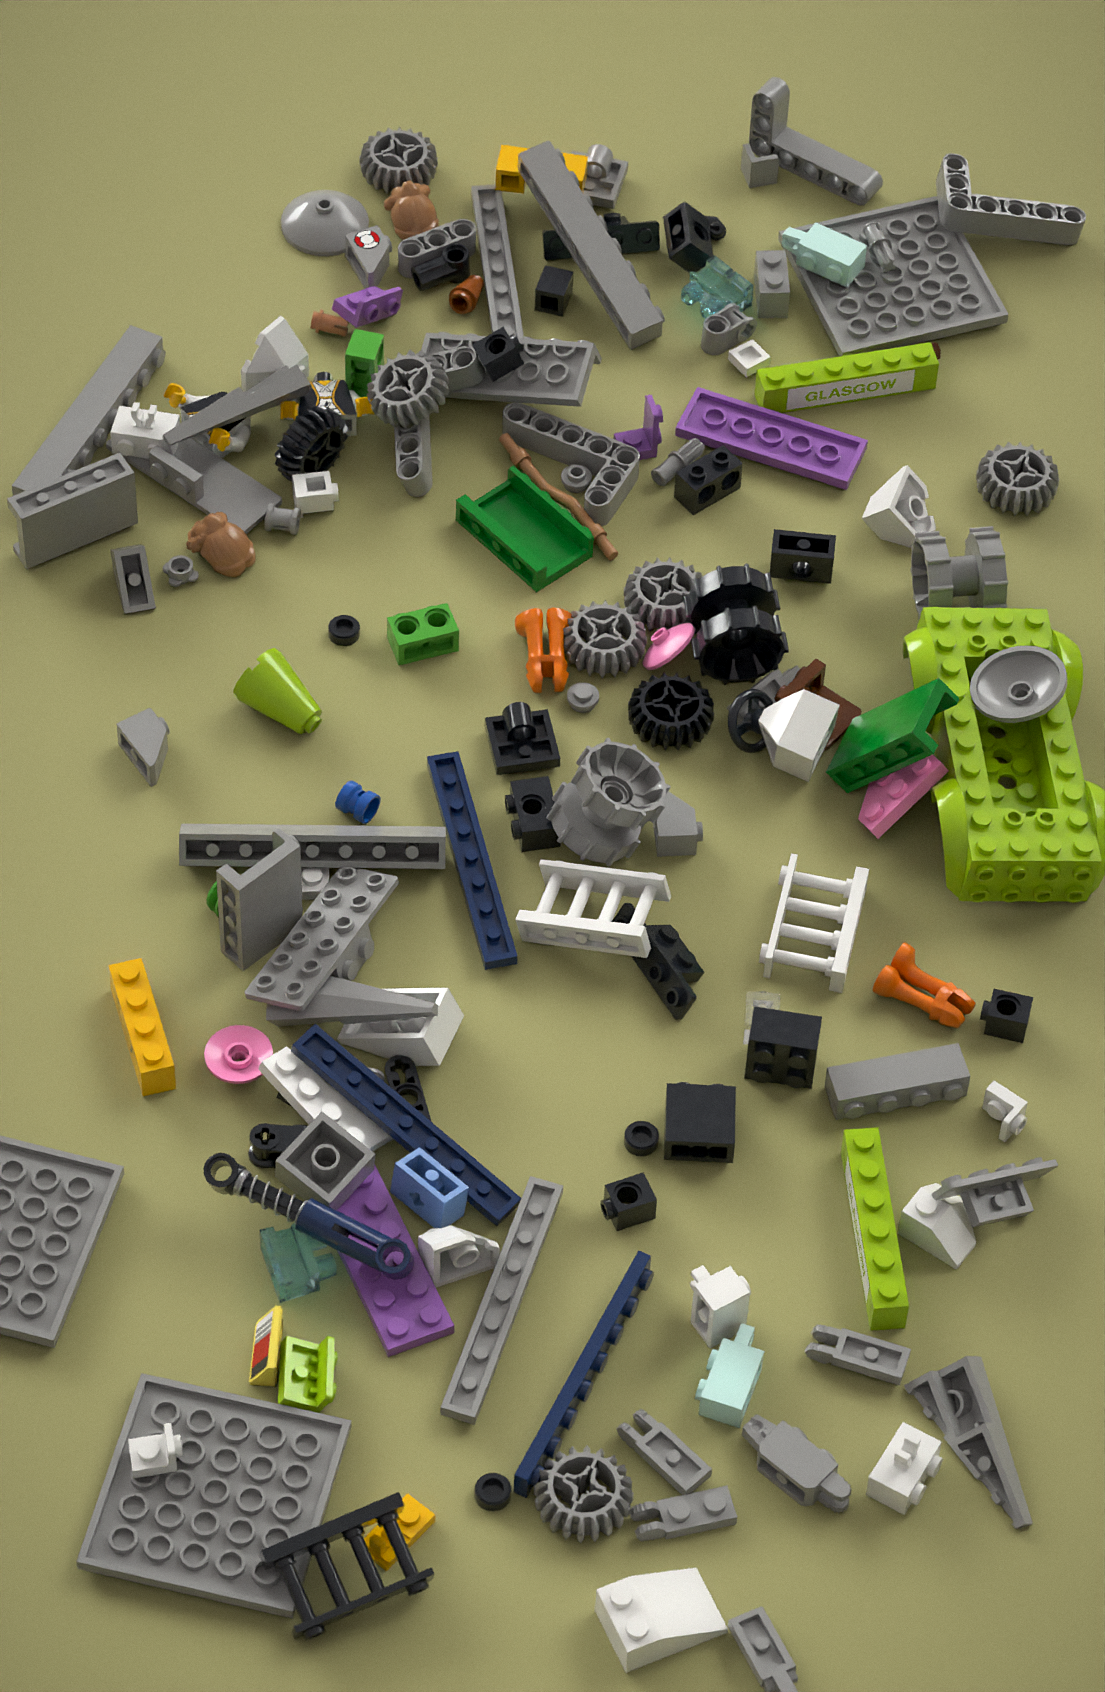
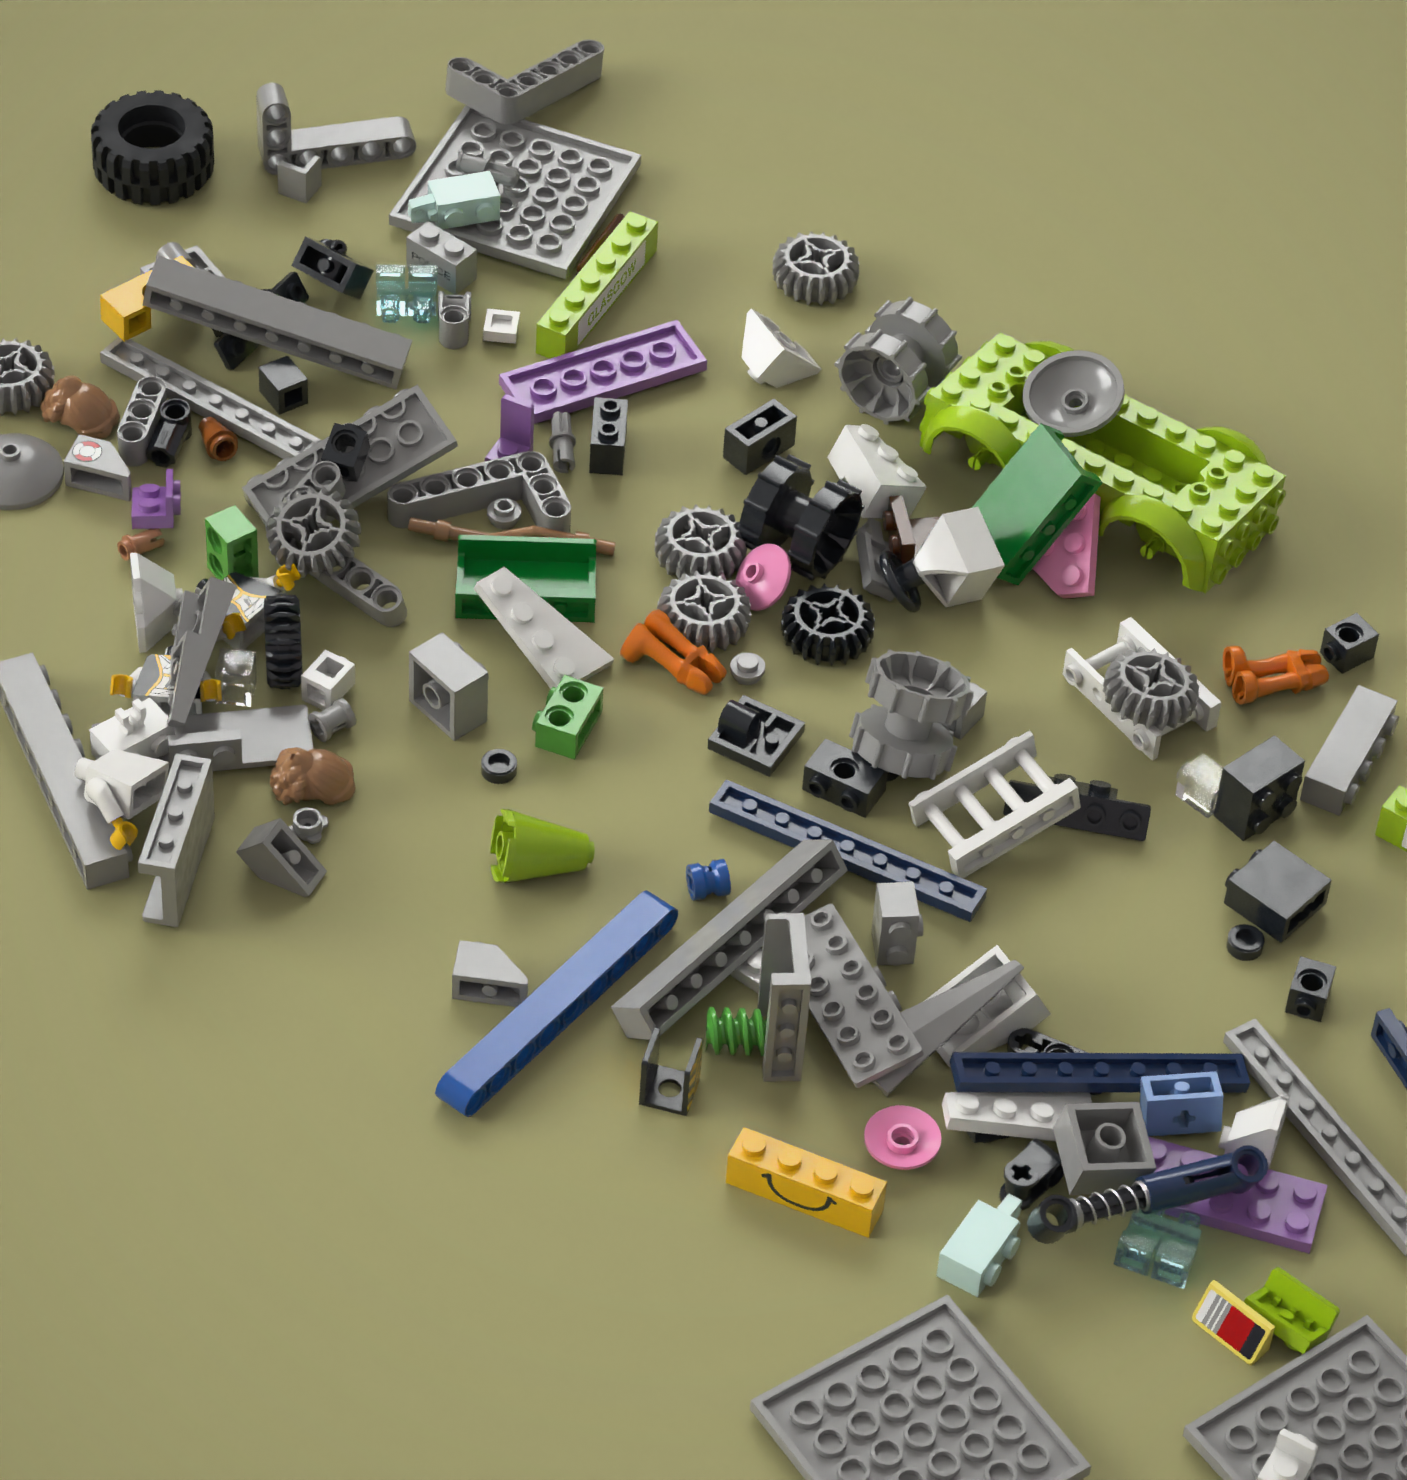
camera: 50 degrees left, 5 degrees down
(80, 447) = (122, 787): none -> white torso
(154, 893) = (655, 1075): none -> black piece
(164, 796) = (556, 1003): none -> beam
(181, 1156) = (980, 1245): none -> light aqua hinge
(260, 446) = (237, 675): none -> clear brick
(369, 552) = (448, 686): none -> light grey brick
(417, 923) = (896, 923): none -> light grey brick
(476, 574) = (540, 631): none -> white wing
(684, 101) = (152, 174): none -> black tyre
(794, 928) = (1151, 688): none -> light grey gear
(841, 640) = (875, 469): none -> white wedge

